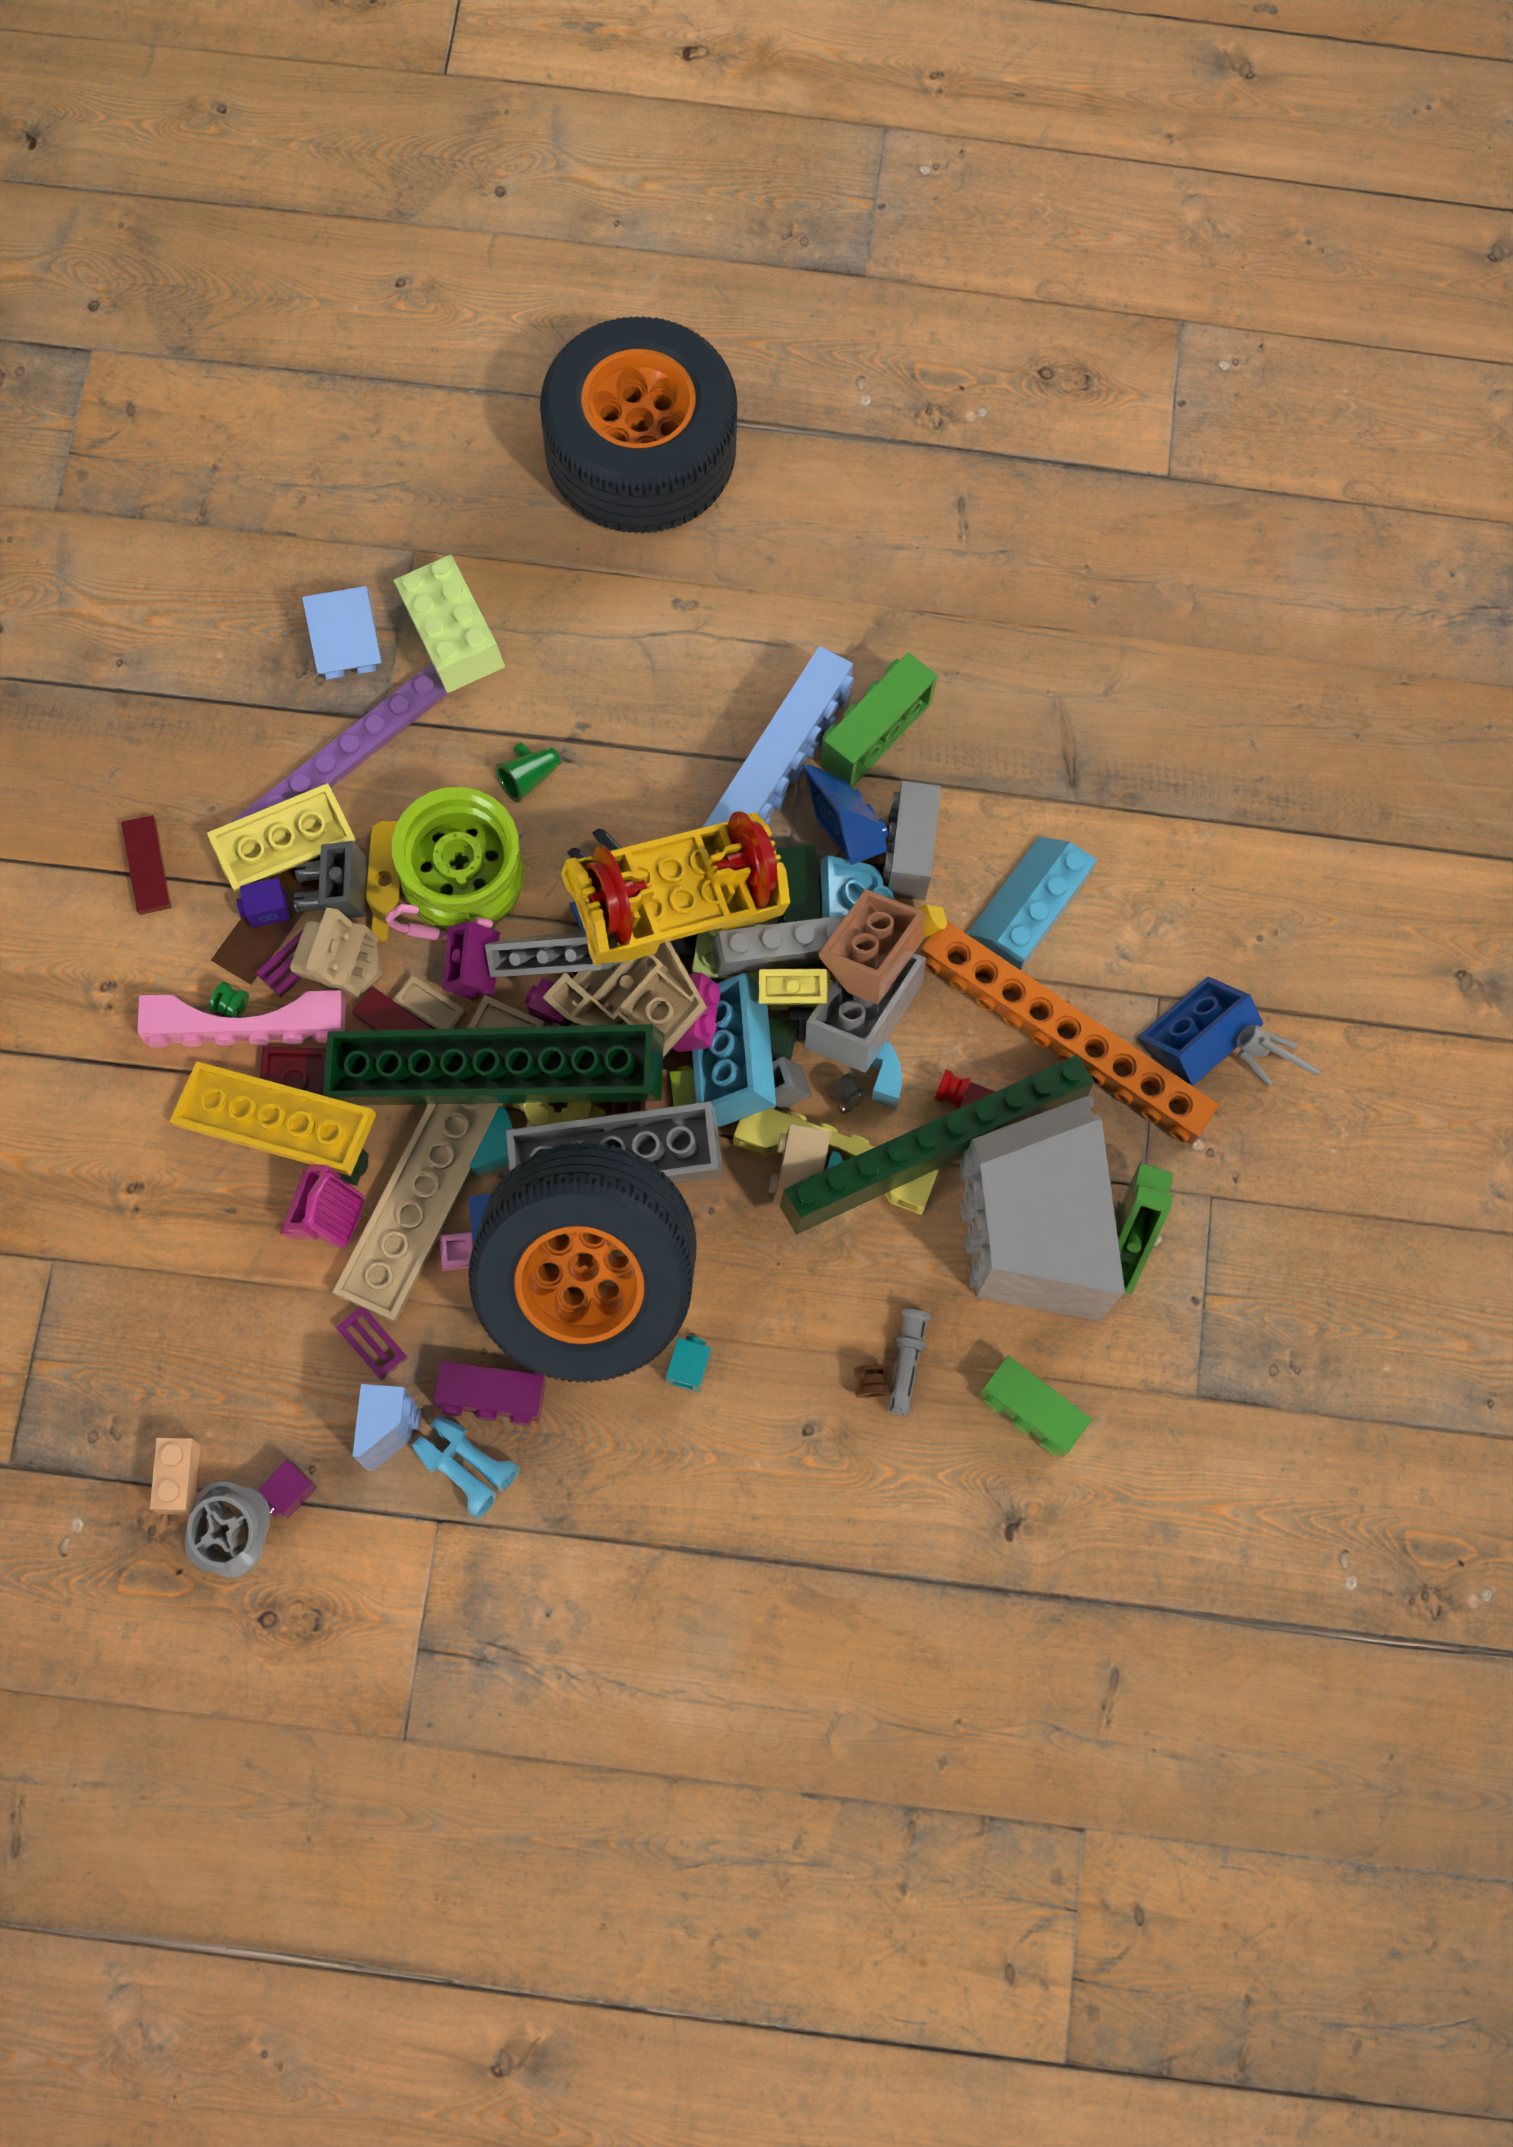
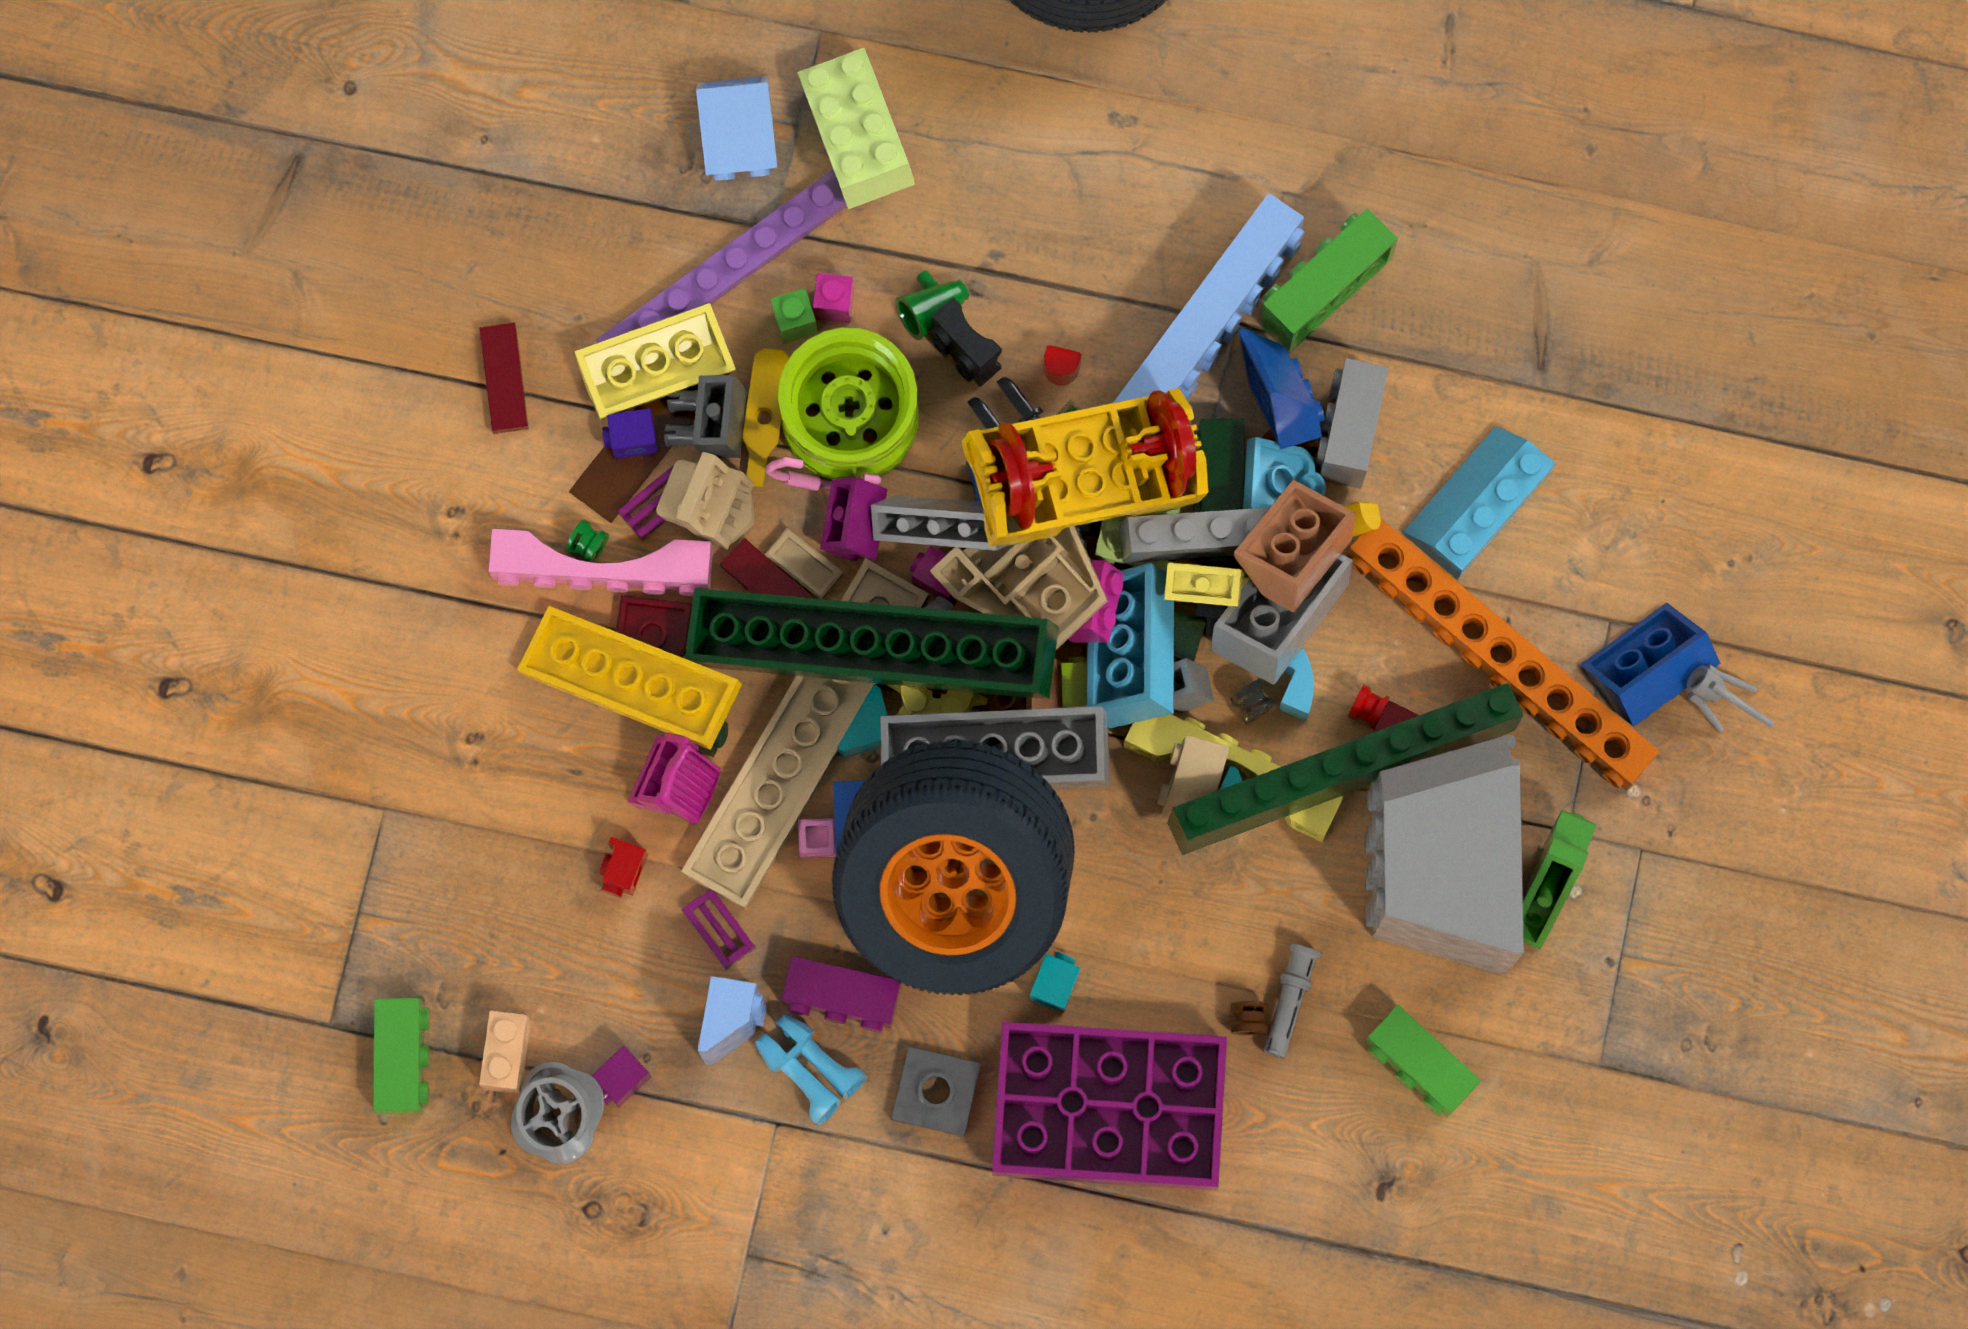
camera: 10 degrees right, 5 degrees up
(75, 1489) = (400, 1056): none -> bright green brick
(277, 1294) = (622, 868): none -> red brick
(403, 786) = (794, 315): none -> bright green brick
(439, 768) = (833, 298): none -> dark pink brick
(560, 800) = (972, 351): none -> black brick
(597, 1499) = (945, 1117): none -> flat silver piece
(648, 813) = (1061, 365): none -> red brick
(749, 1475) = (1109, 1106): none -> magenta brick

